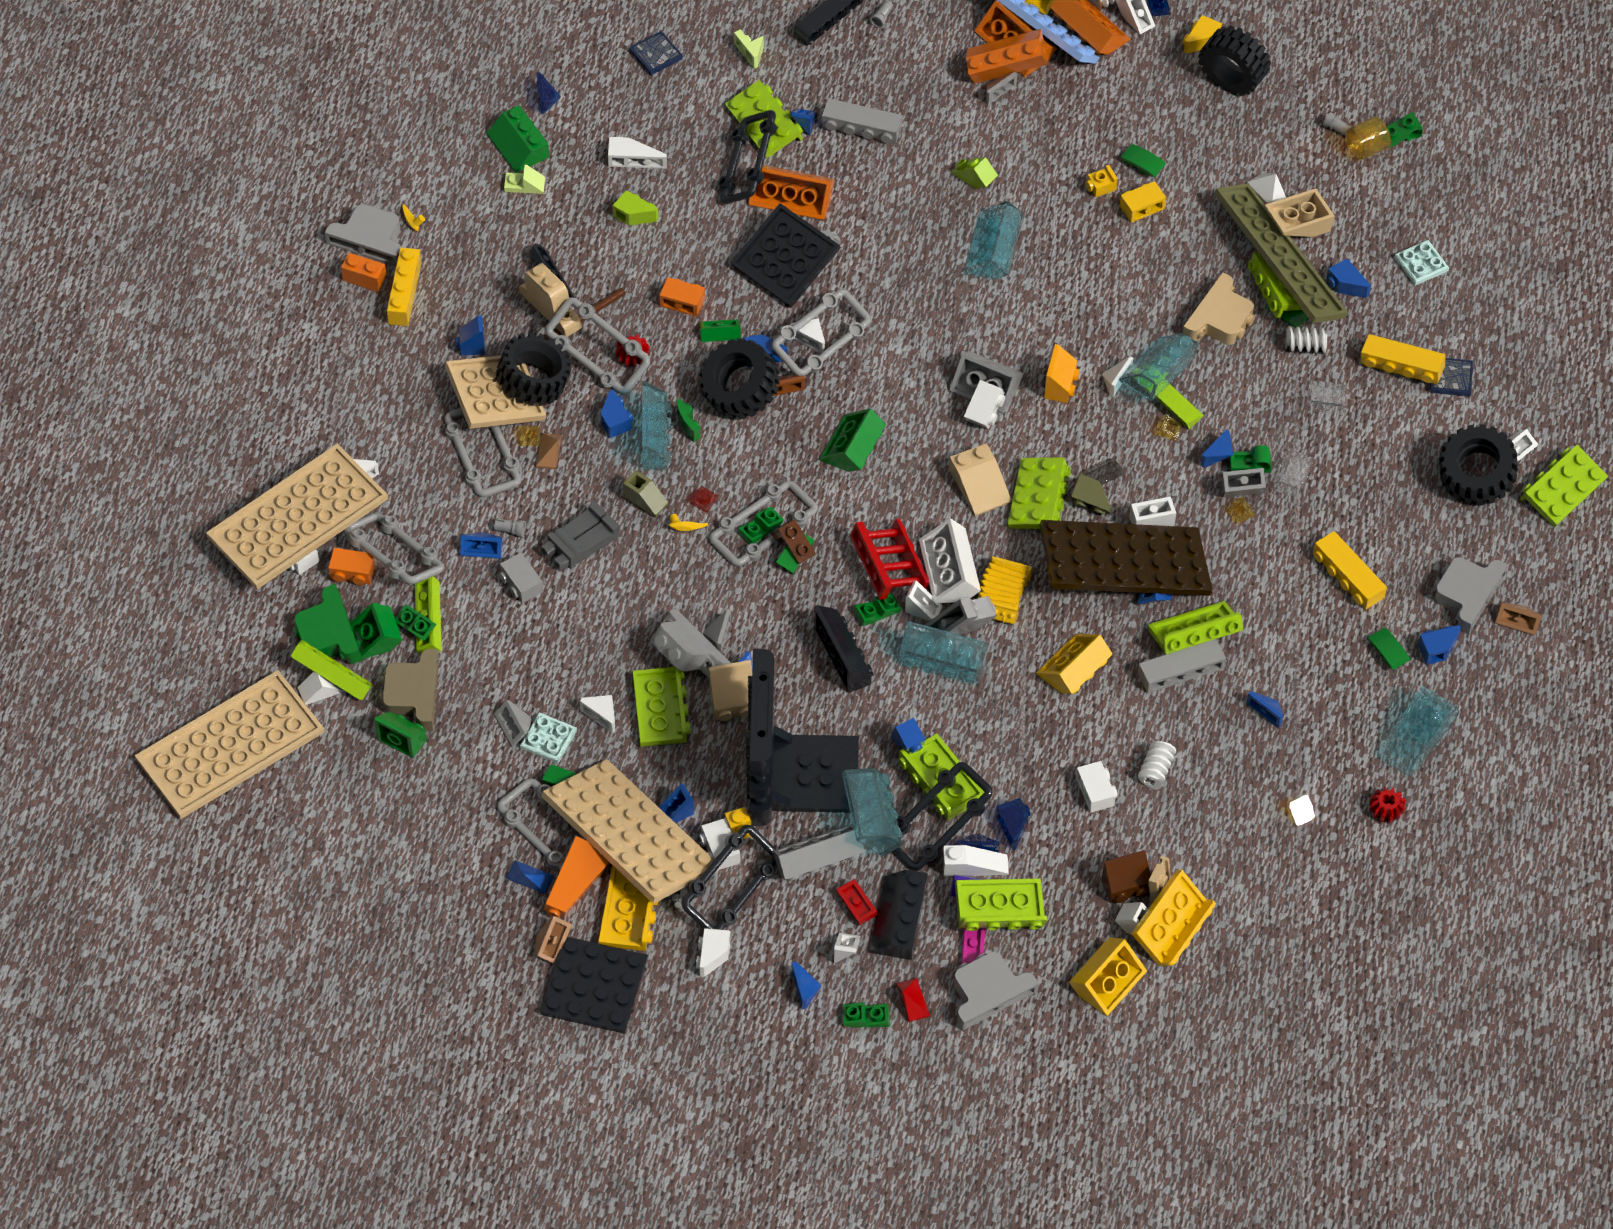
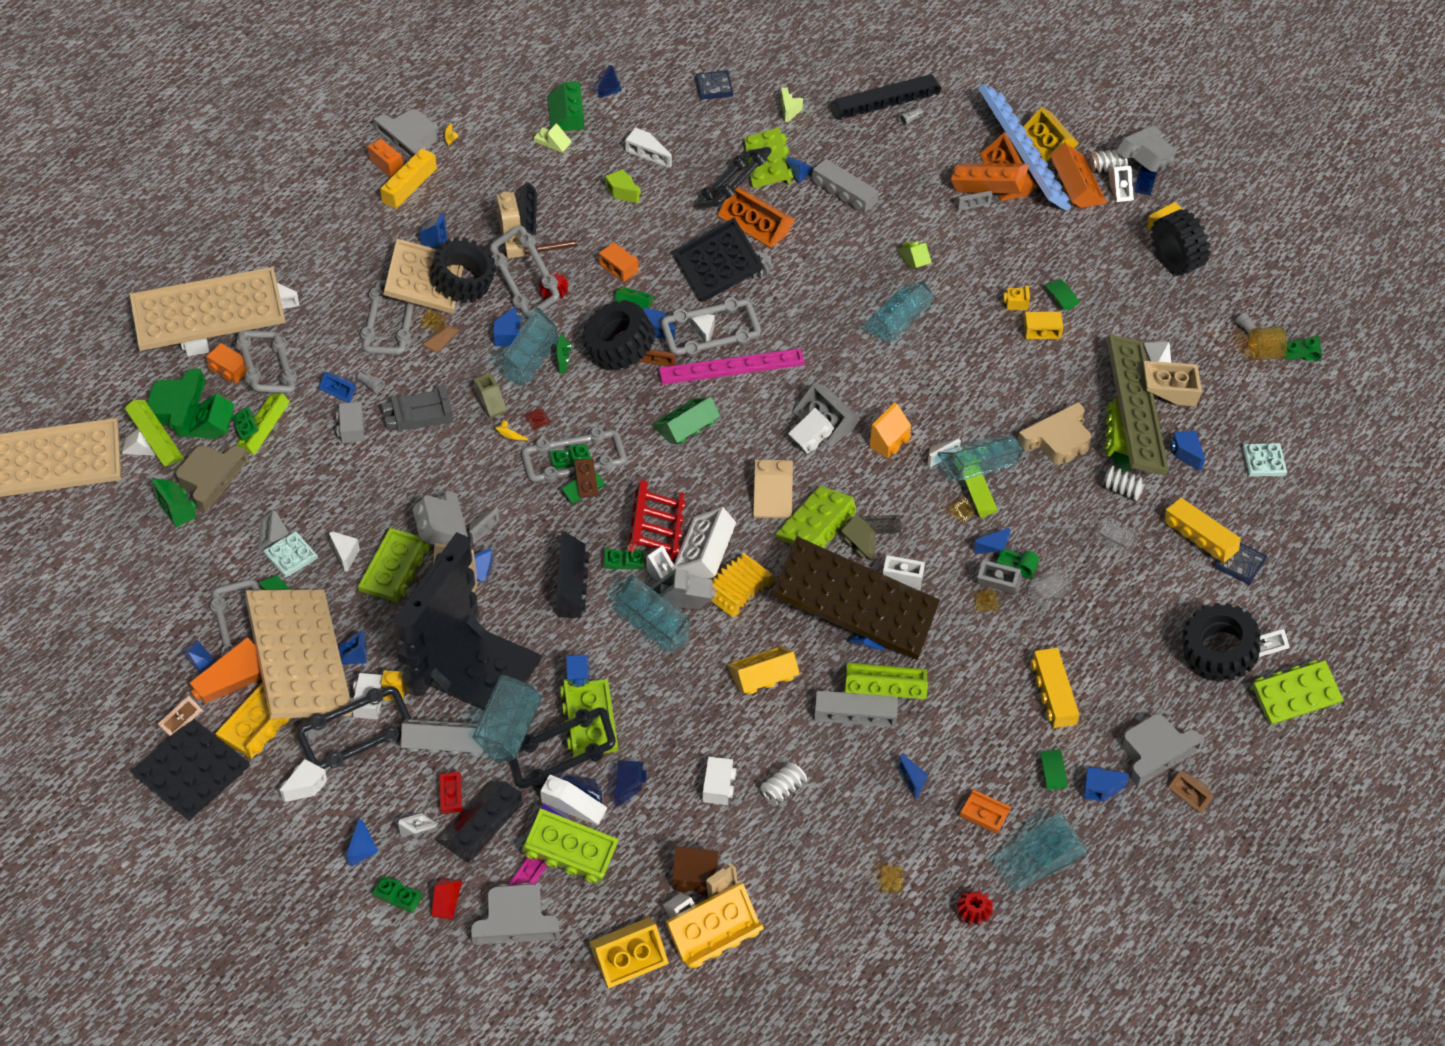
camera: 25 degrees right, 5 degrees down
(861, 366) = (731, 366): none -> dark pink tile
(1349, 713) = (985, 811): none -> orange plate

